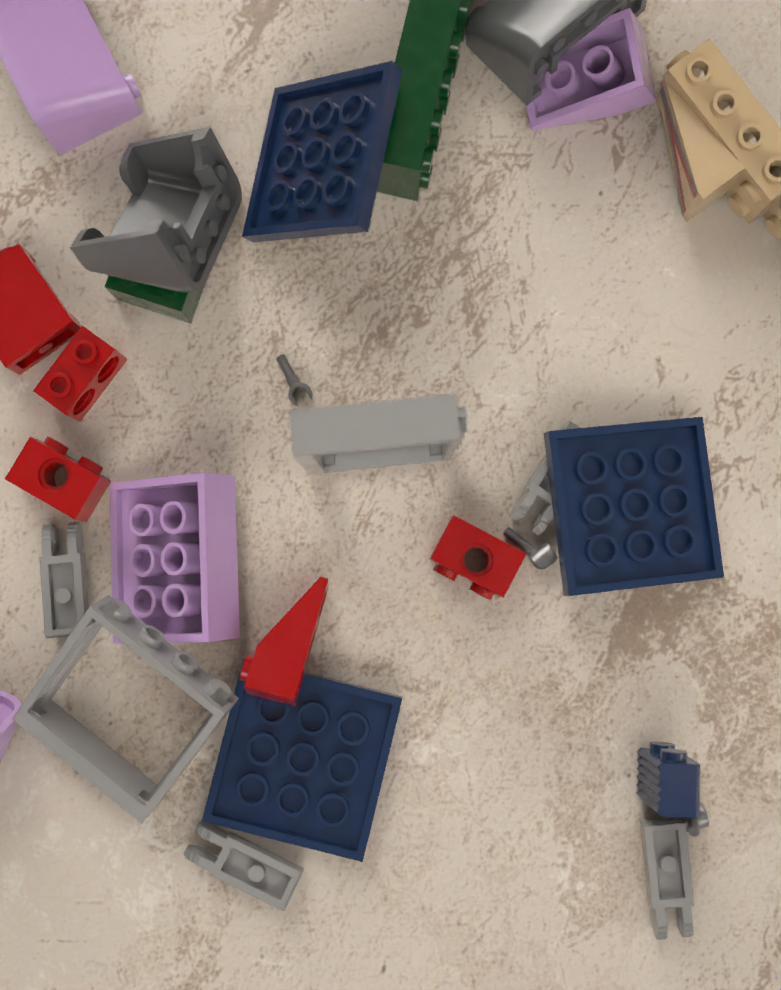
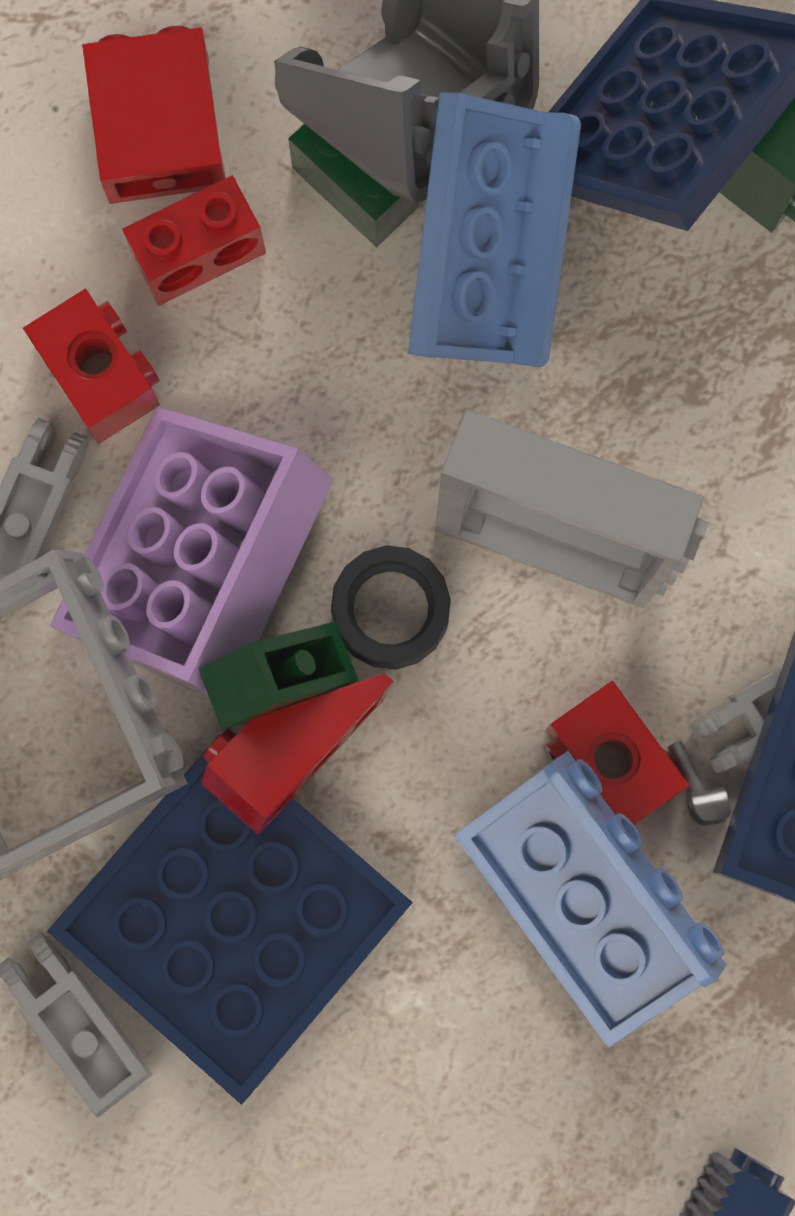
camera: 25 degrees right, 5 degrees down
(253, 284) = (493, 231): none -> medium blue bracket
(259, 609) = (277, 673): none -> dark green brick
(277, 522) = (399, 561): none -> black tyre
(292, 380) = (478, 390): flat silver hand -> none
(502, 645) = (592, 899): none -> medium blue bracket

